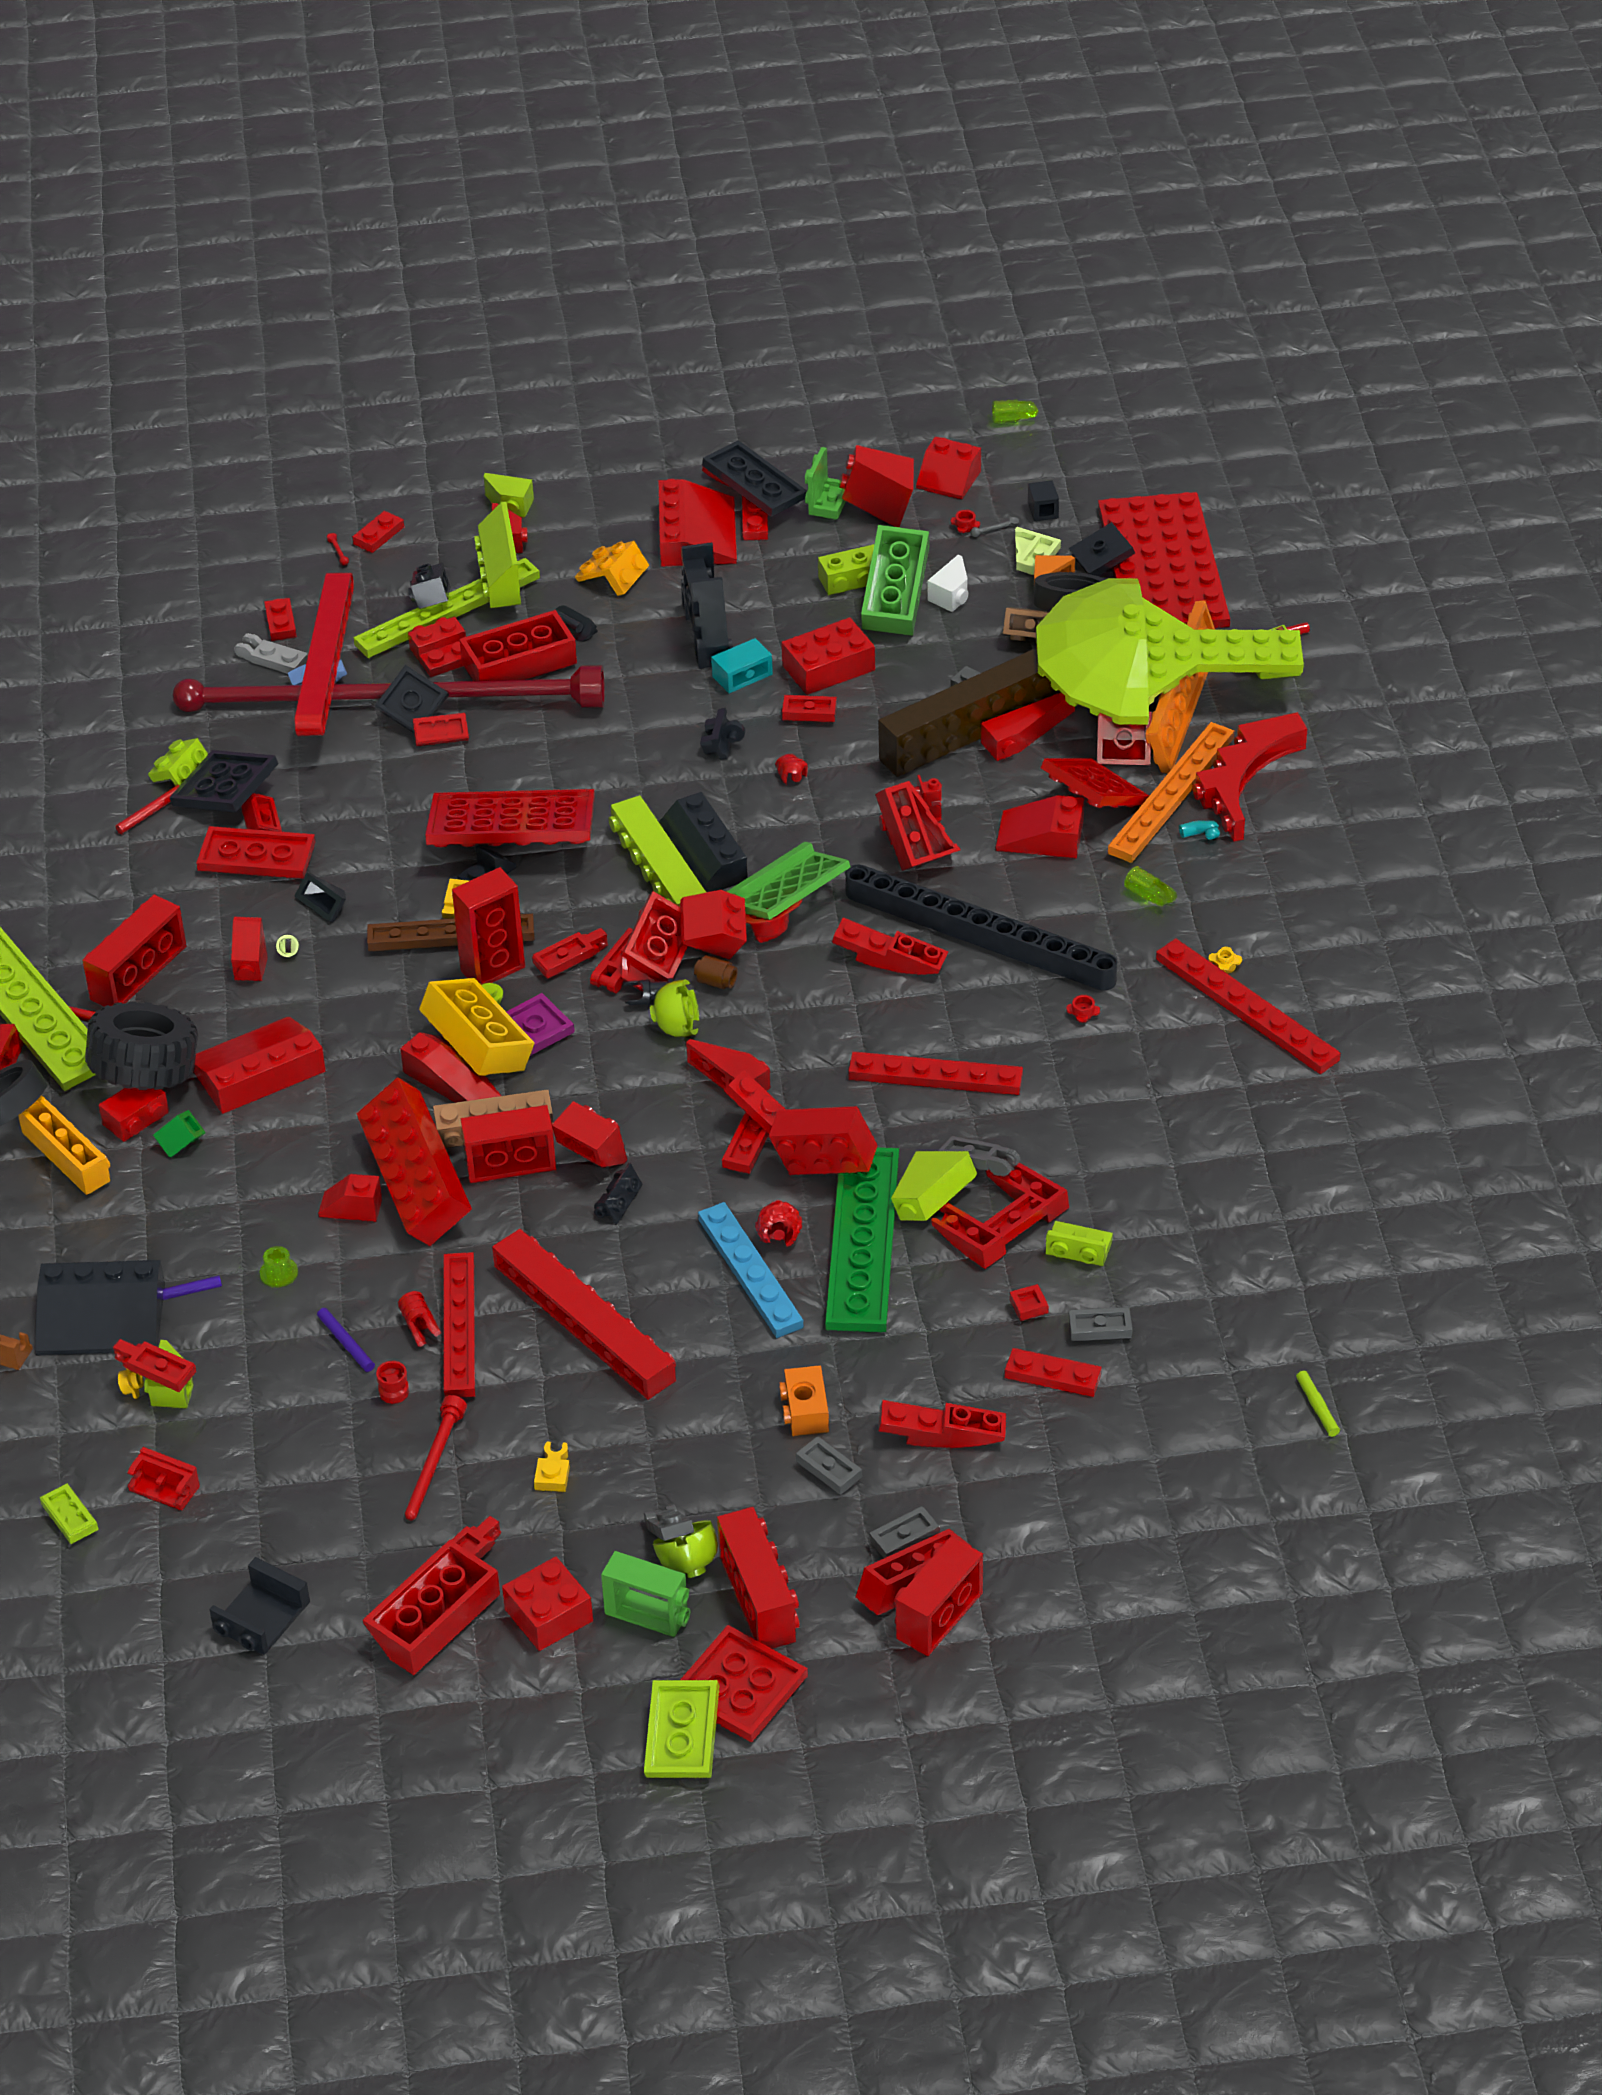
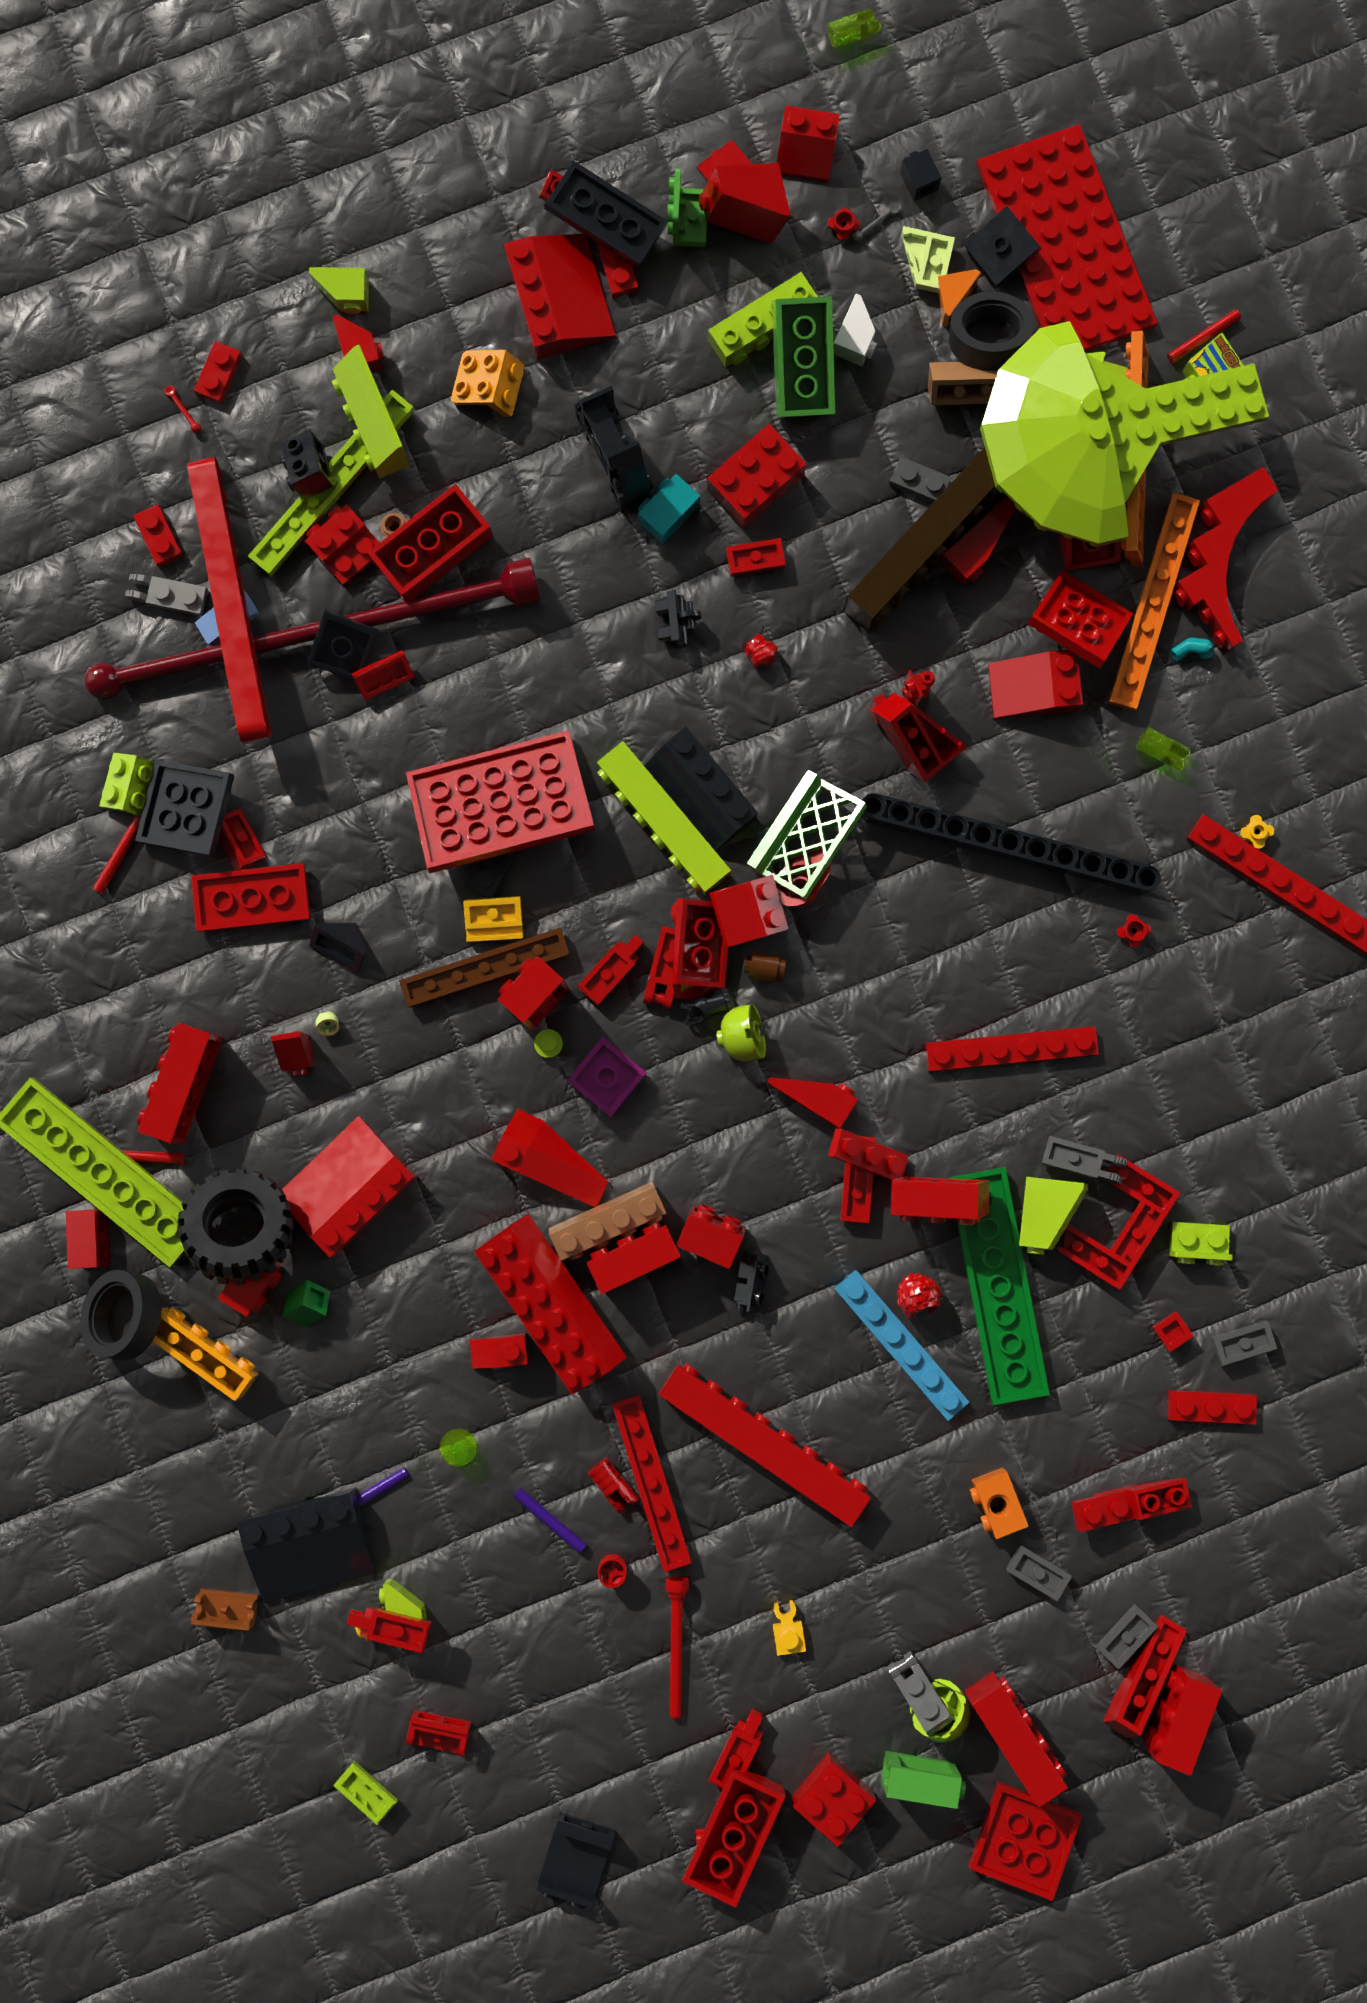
camera: 15 degrees left, 40 degrees up
(476, 1026) = (555, 1109): yellow brick -> none
(579, 625) = (471, 476): black piece -> none
(681, 1729) = (992, 1913): lime plate -> none
(890, 953) = (929, 897): red slope -> none

